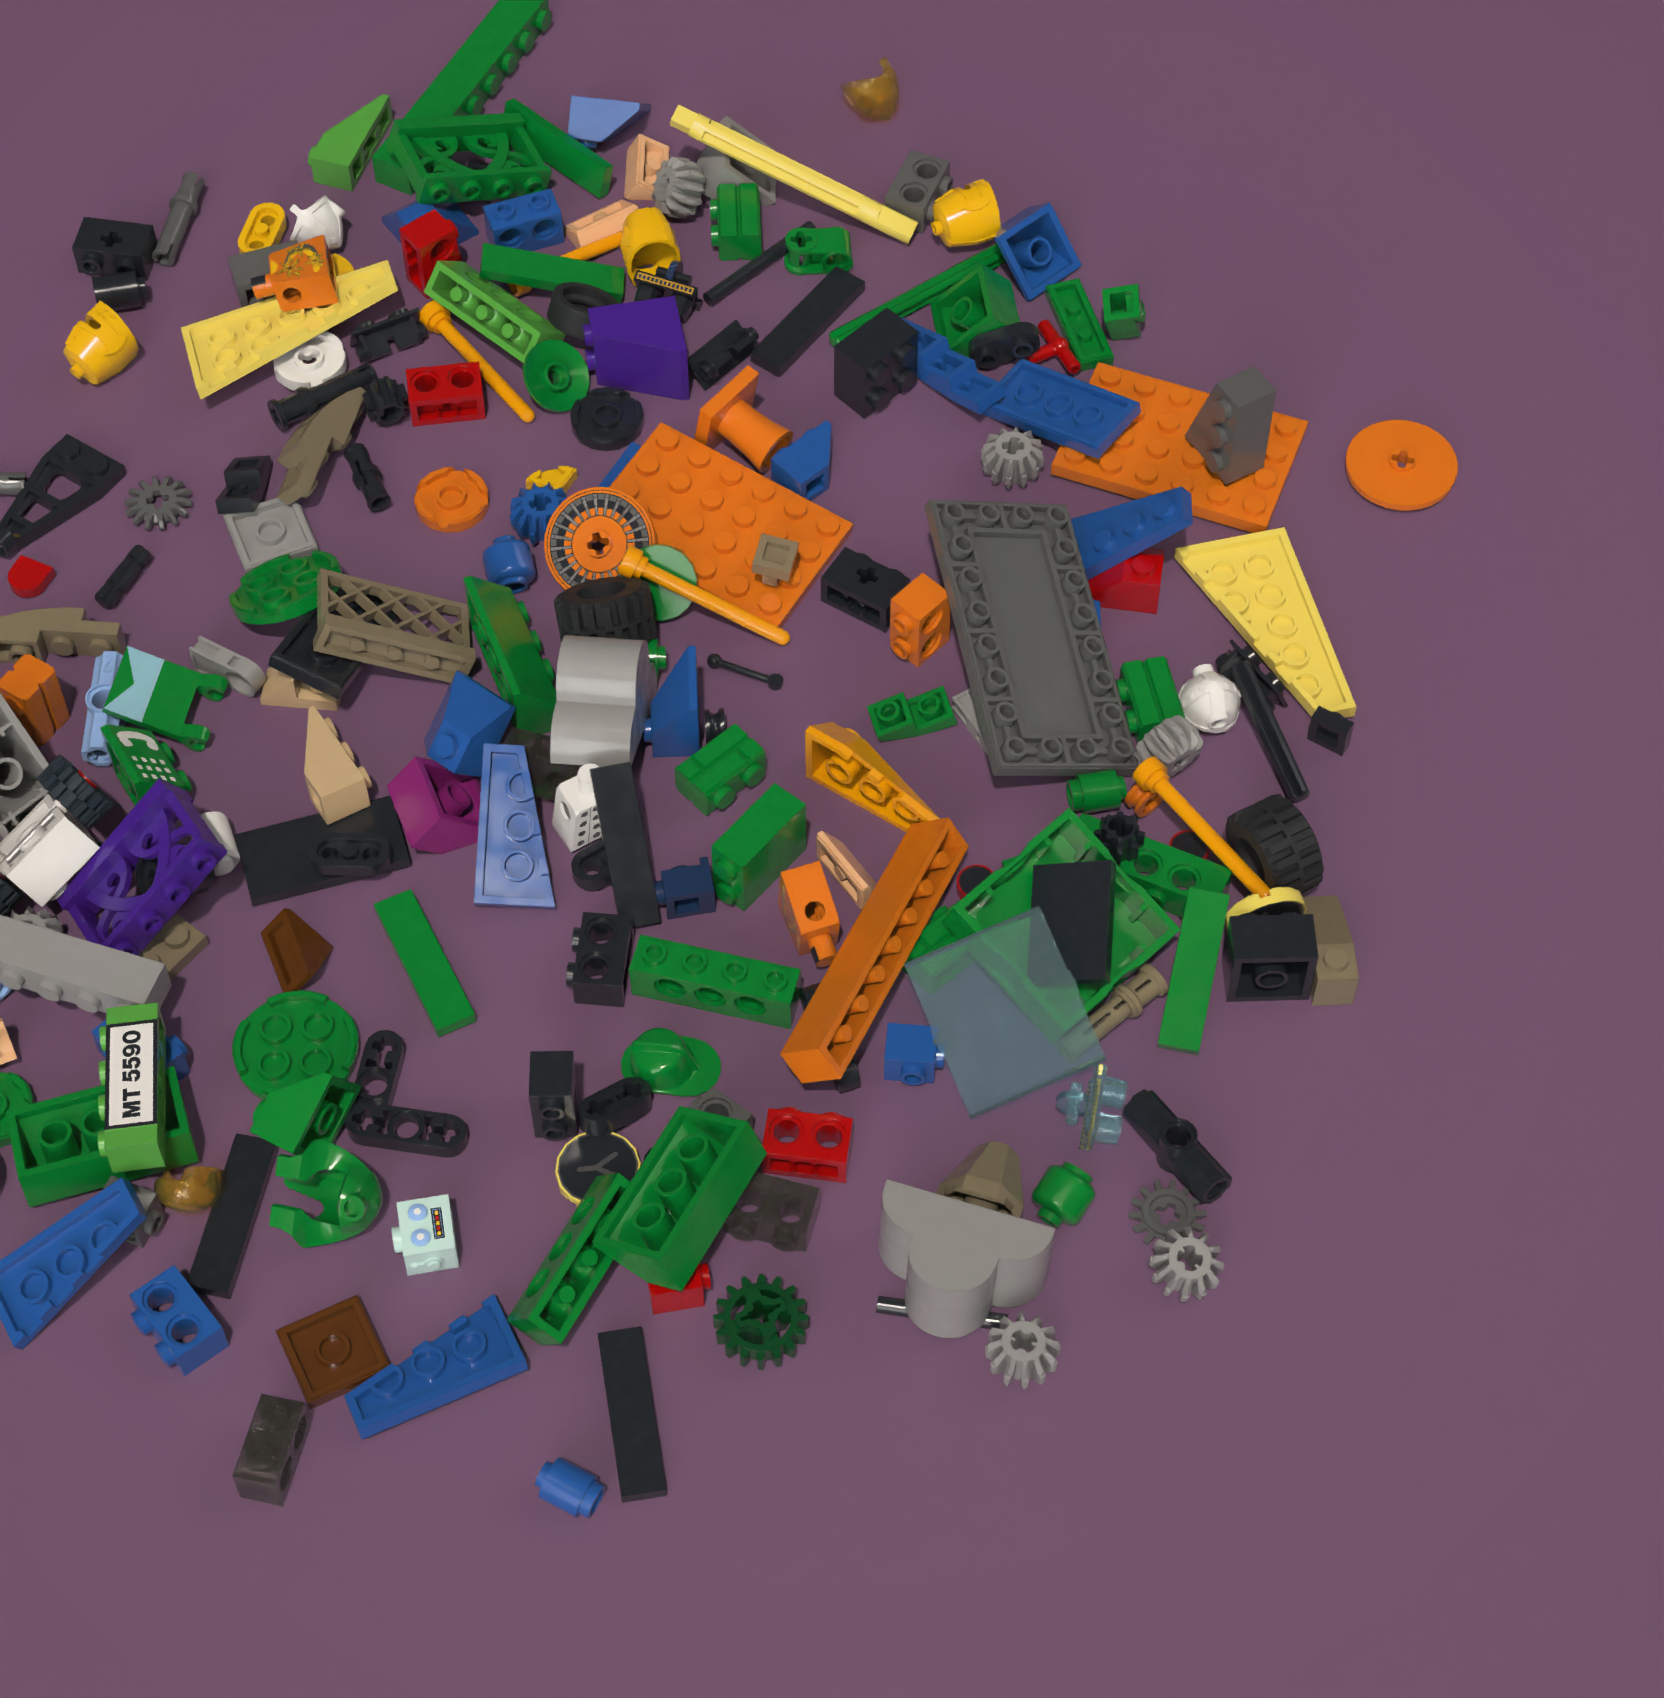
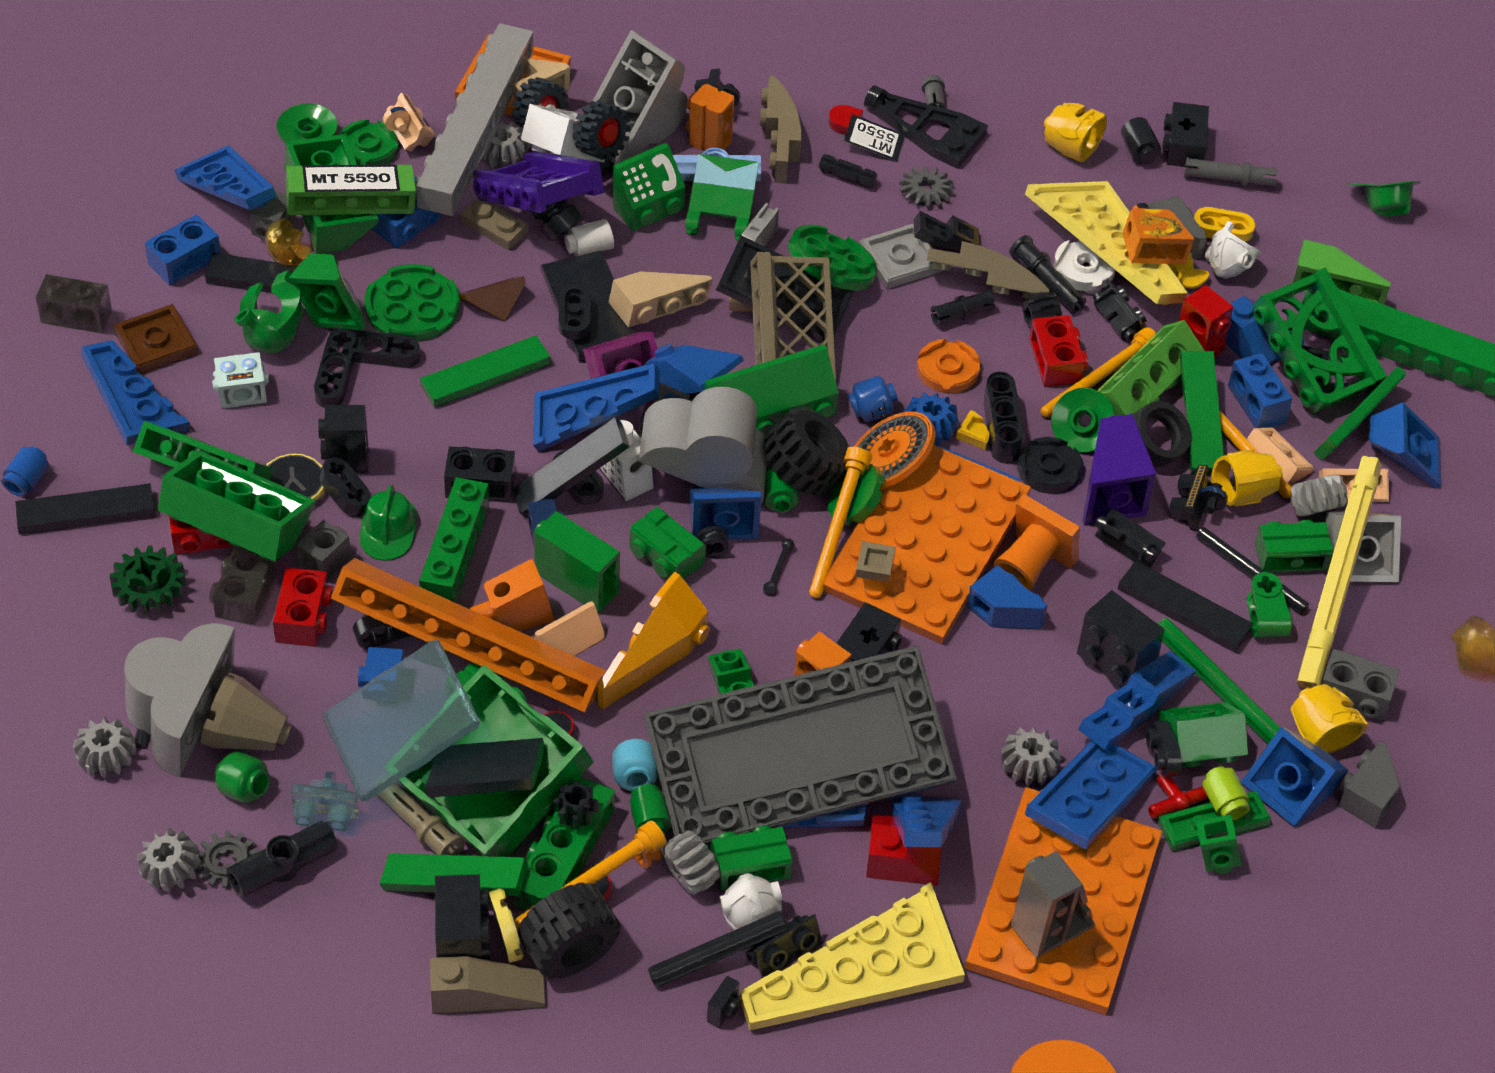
camera: 85 degrees right, 5 degrees down
(67, 548) = (874, 137): none -> sticker
(238, 87) = (1390, 198): none -> green piece
(542, 447) = (1003, 417): none -> black beam
(1033, 803) = (634, 764): none -> medium azure head
(1038, 186) = (1372, 788): none -> dark grey slope
(1062, 300) = (1226, 792): none -> lime brick

